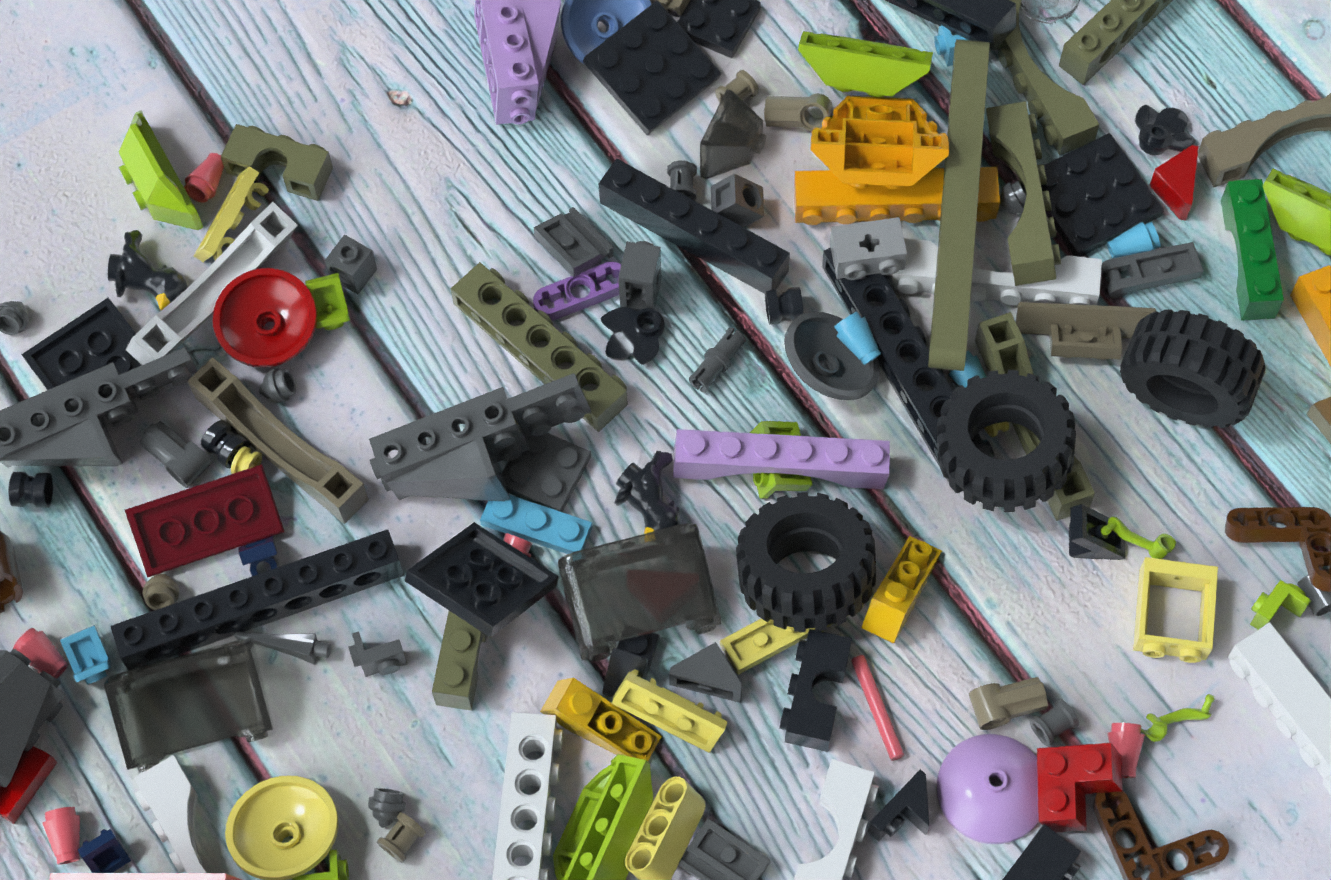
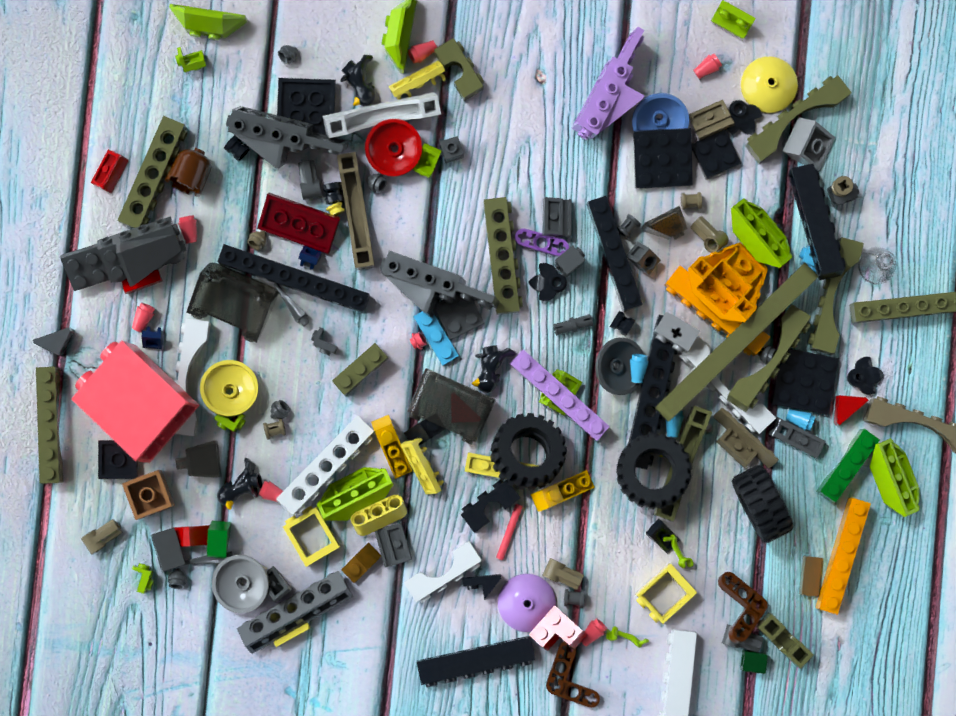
camera: 30 degrees right, 20 degrees up
(86, 655) = (206, 245): medium azure bracket -> none
(481, 579) = (388, 349): black plate -> none
(707, 674) = (452, 462): dark grey slope -> none
(1283, 595) = (705, 623): lime bracket -> none

